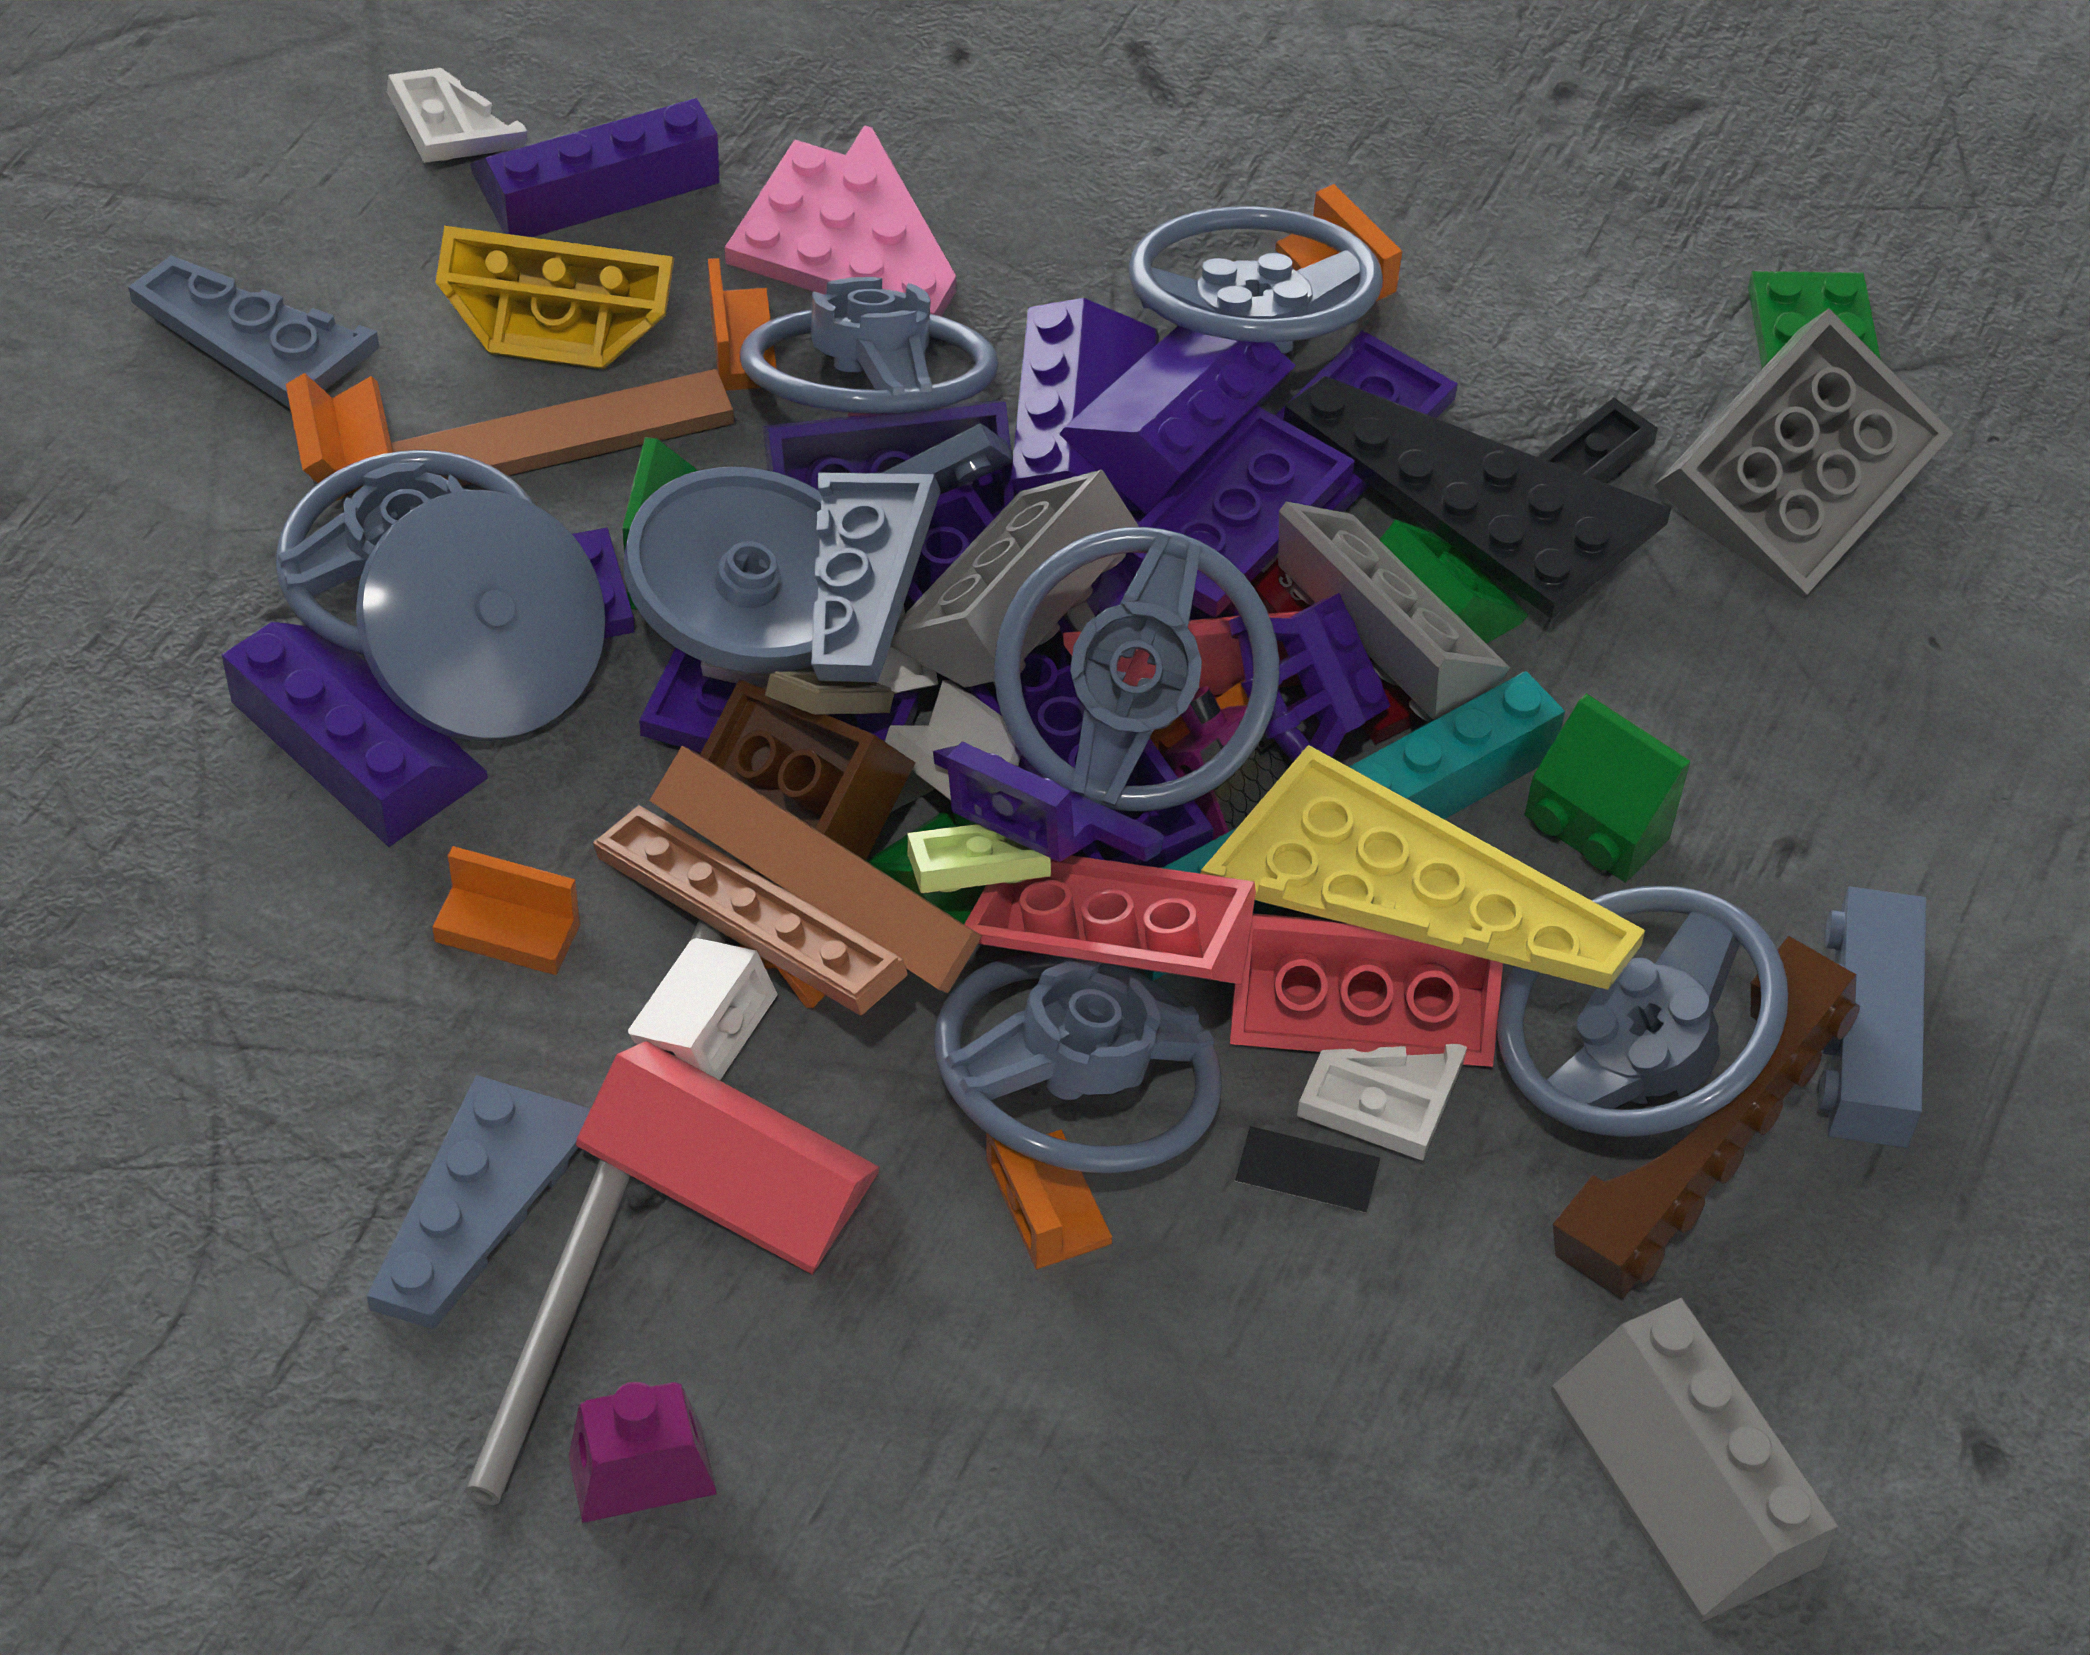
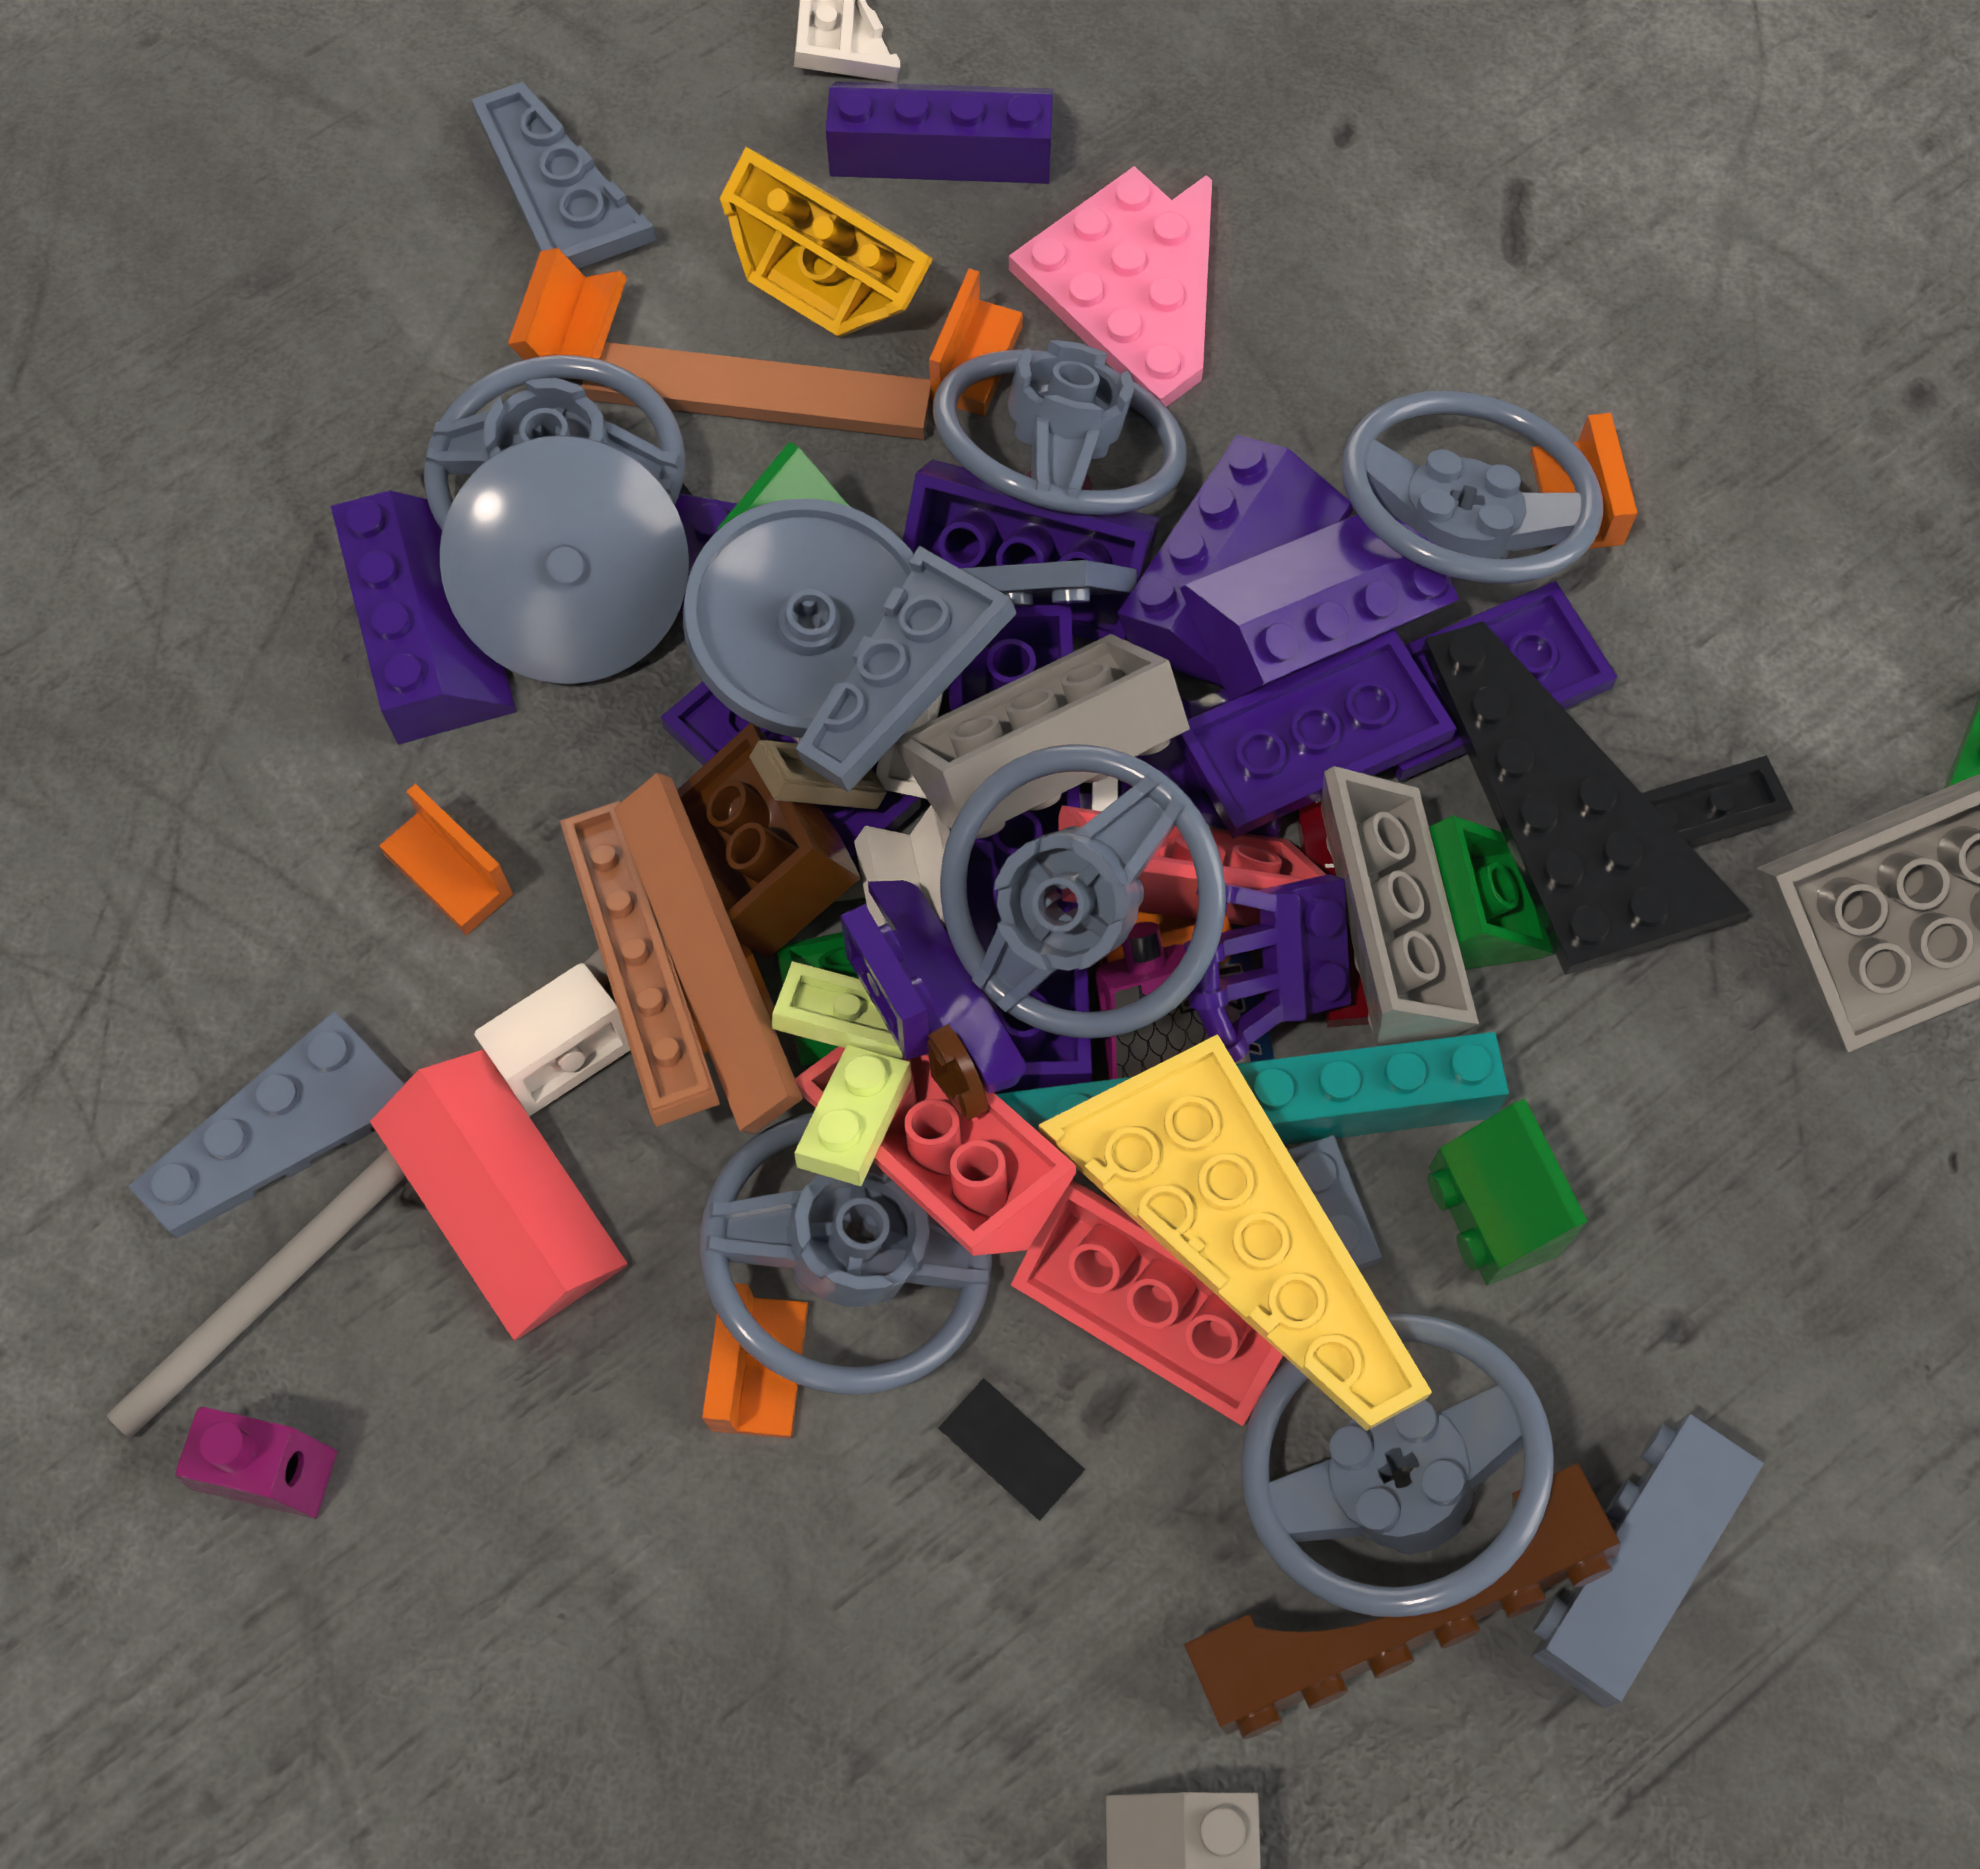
camera: 30 degrees right, 15 degrees up
(1038, 924) = (853, 1115): none -> yellowish green plate
(1108, 854) = (956, 1073): none -> reddish brown tile
(1383, 1094) = (1118, 1412): white wing -> none

